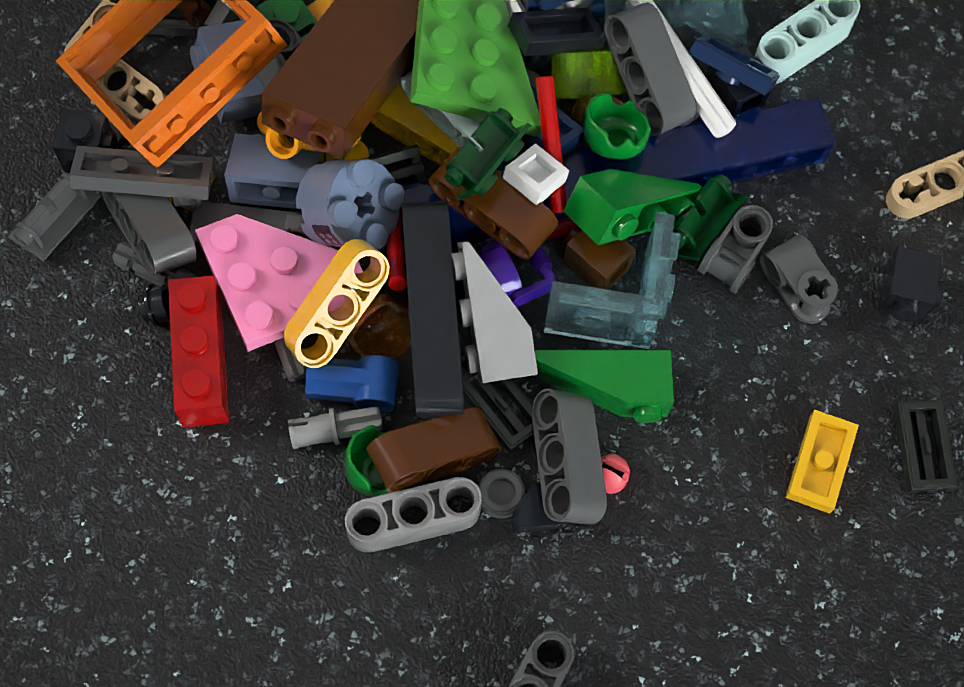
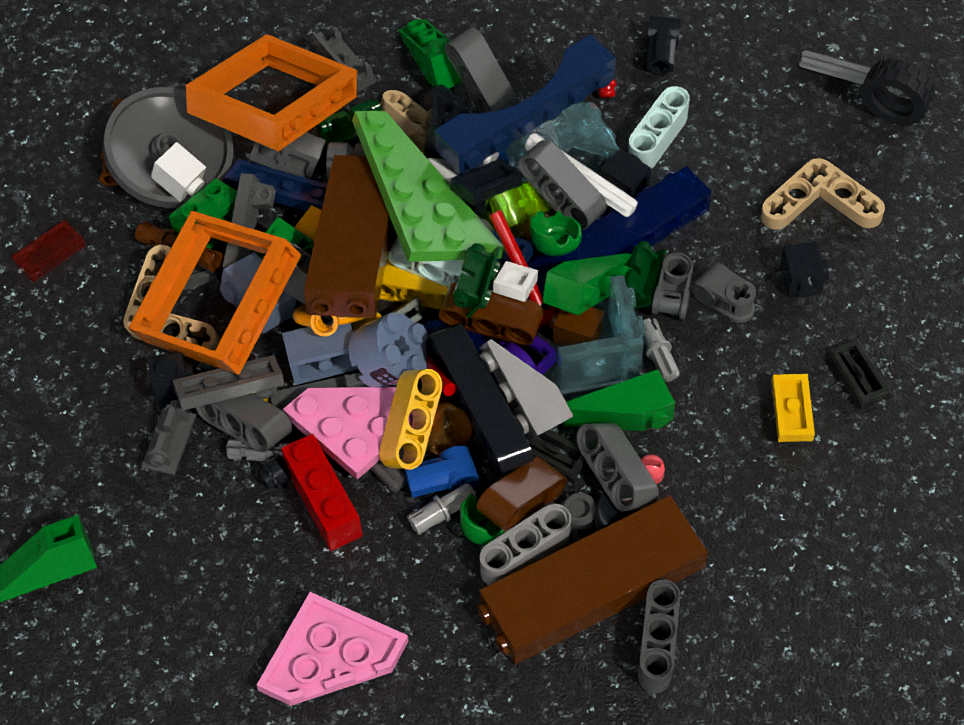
camera: 15 degrees left, 10 degrees down
(119, 559) = (329, 651): none -> bright pink plate
(474, 592) = (590, 579): none -> reddish brown brick
(686, 322) = (659, 350): none -> light grey axle
(734, 65) = (618, 163): dark blue plate -> none

